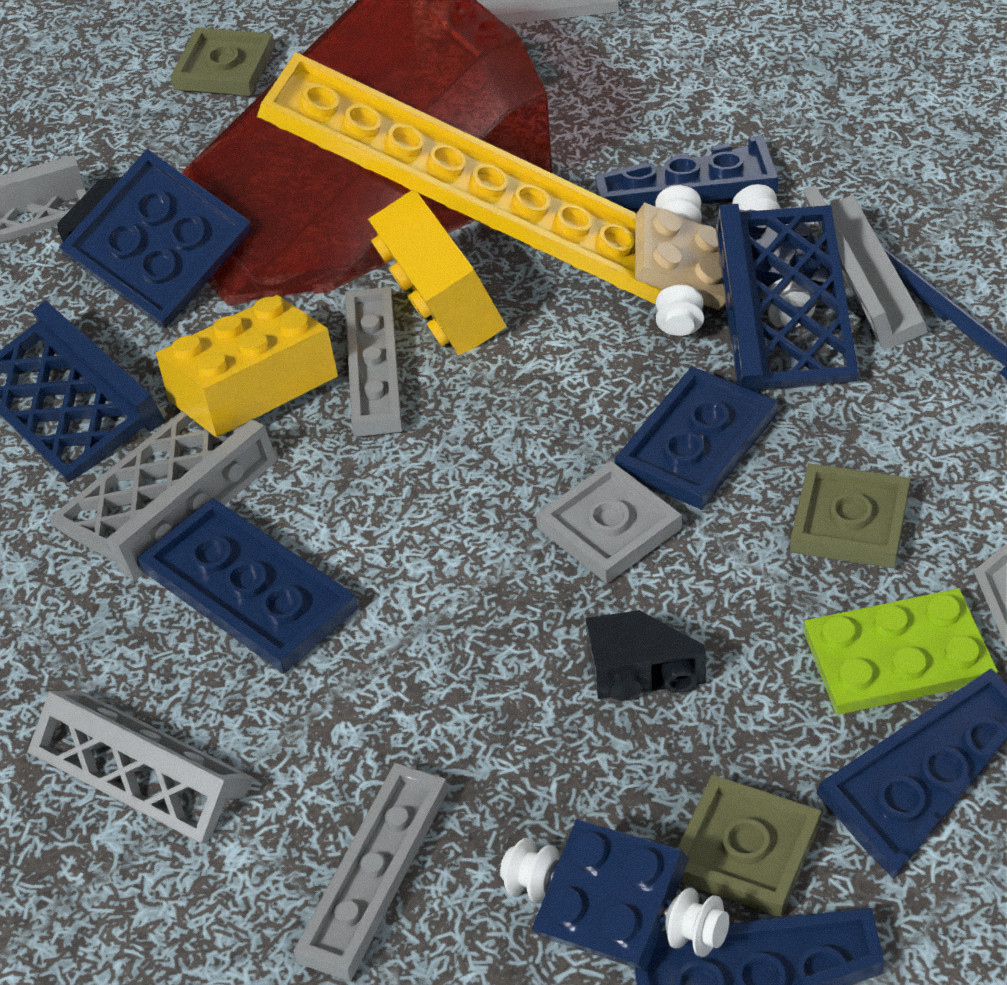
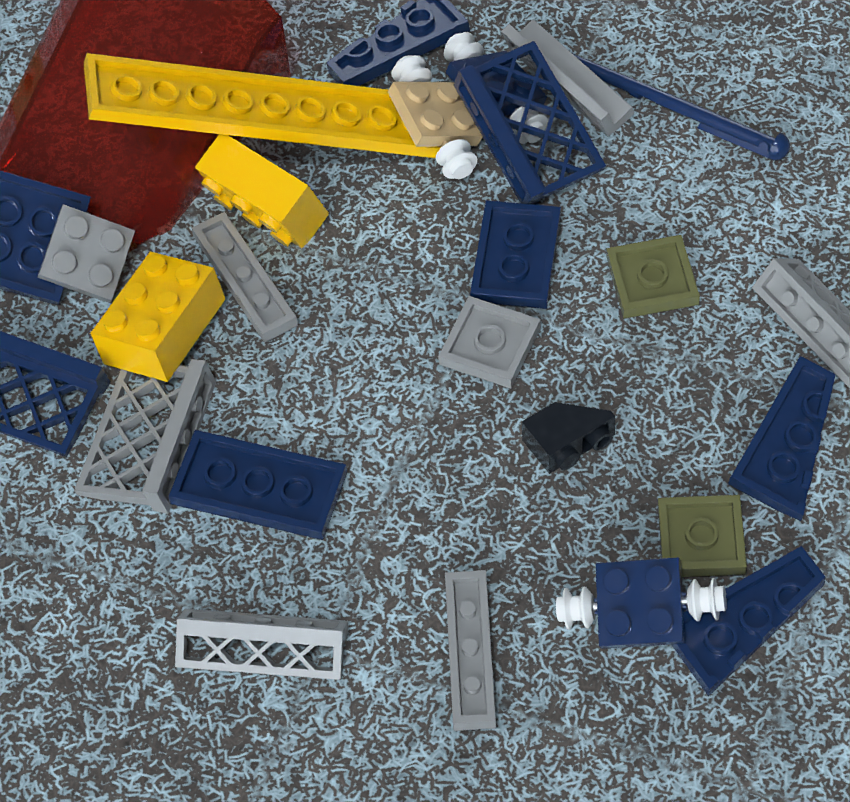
camera: 25 degrees left, 10 degrees up
(213, 275) = (86, 253): none -> light grey plate
(897, 651) = (730, 364): lime plate -> none

